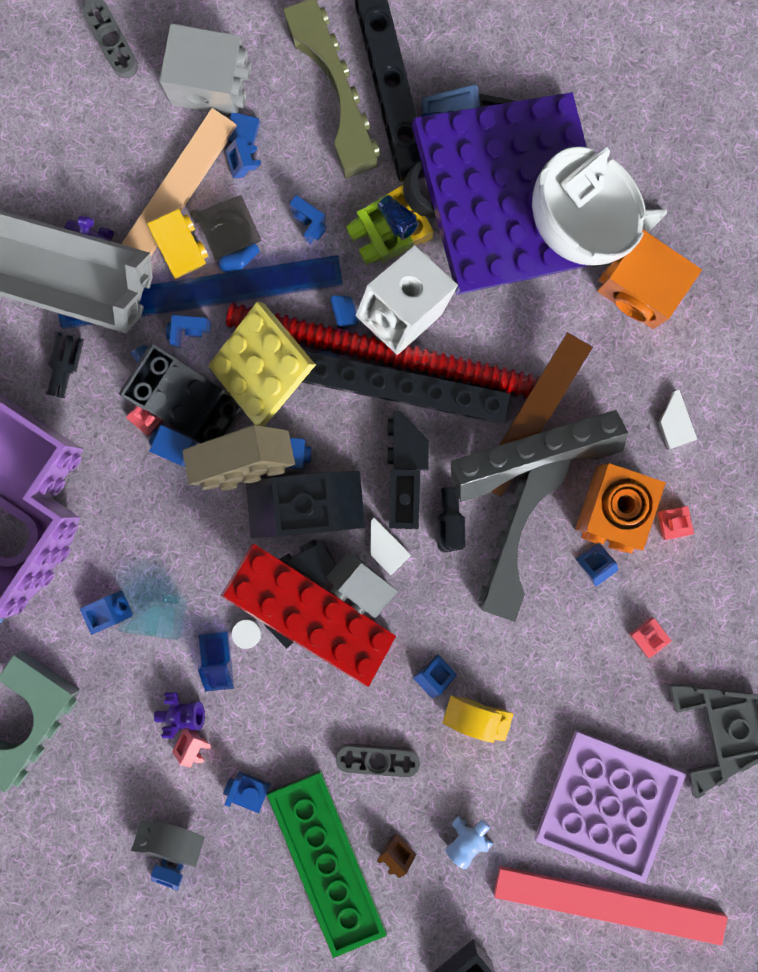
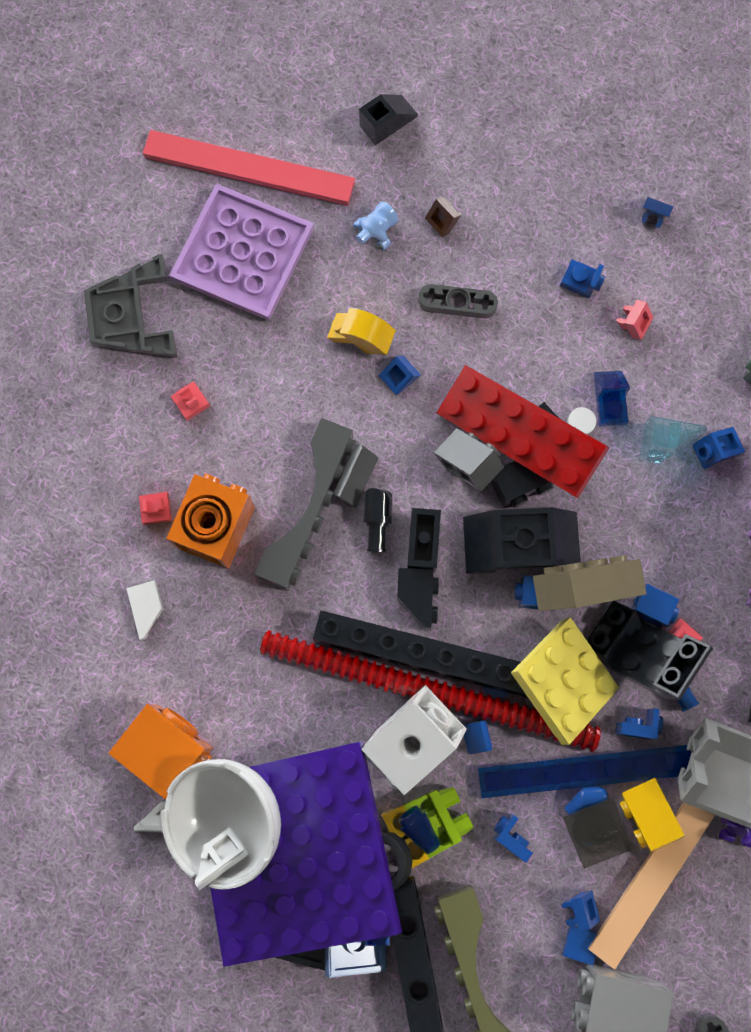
camera: 175 degrees left, 10 degrees down
(168, 843) = (657, 234): dark grey brick -> none
(179, 716) = (646, 347): dark purple piece -> none
(327, 864) = (508, 214): green plate -> none
(386, 548) = (442, 496): white tile -> none
(475, 564) = (355, 476): none -> dark grey tile
(488, 469) = (246, 589): dark grey arch -> none
(547, 393) = (288, 619): reddish brown tile -> none
(597, 564) = (236, 471): blue slope -> none

